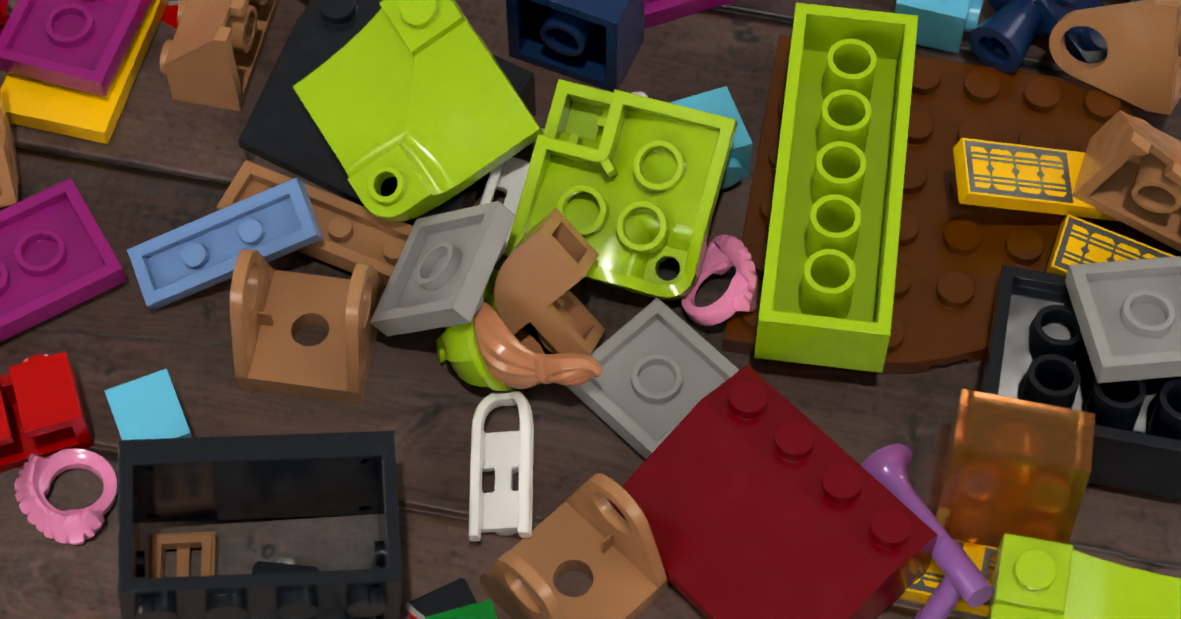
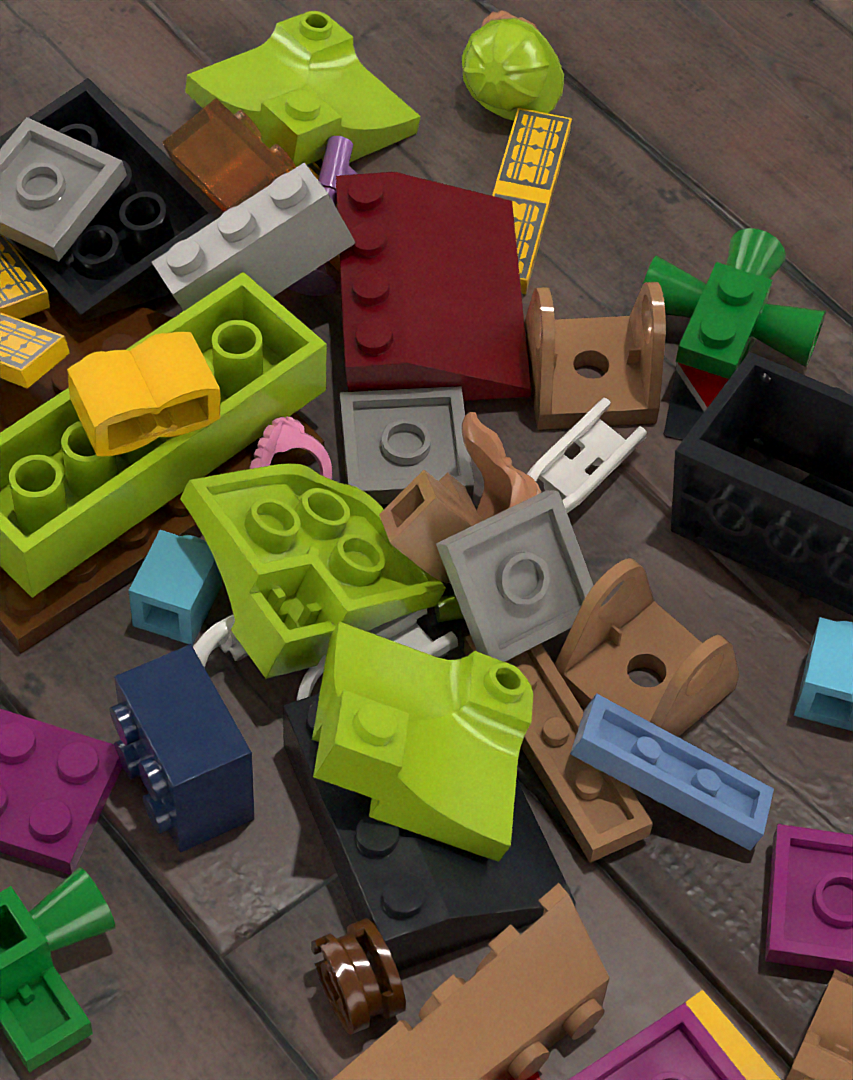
camera: 145 degrees left, 5 degrees down
(833, 143) = (143, 393): none -> yellow brick
(916, 393) = (269, 237): none -> light grey brick

